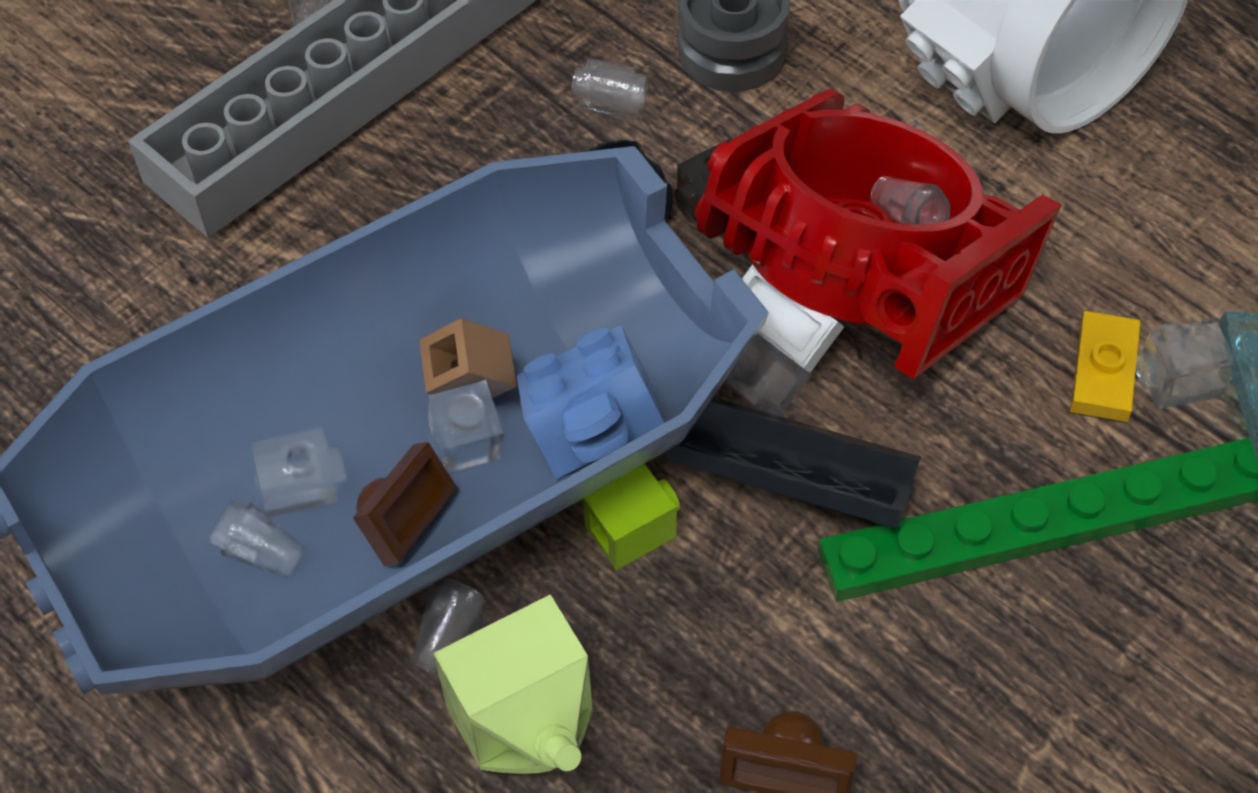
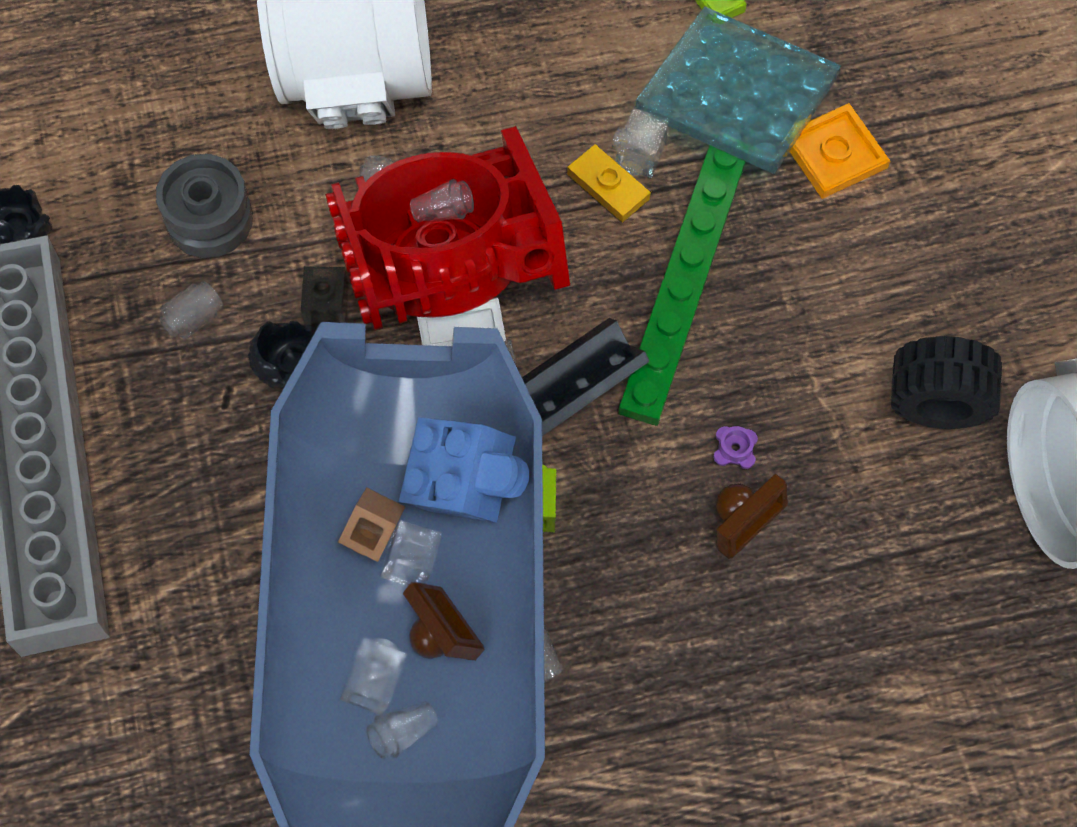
camera: 60 degrees left, 10 degrees up
(520, 691) = (629, 628): yellowish green piece -> none
(876, 683) = (735, 436): none -> medium lavender plate

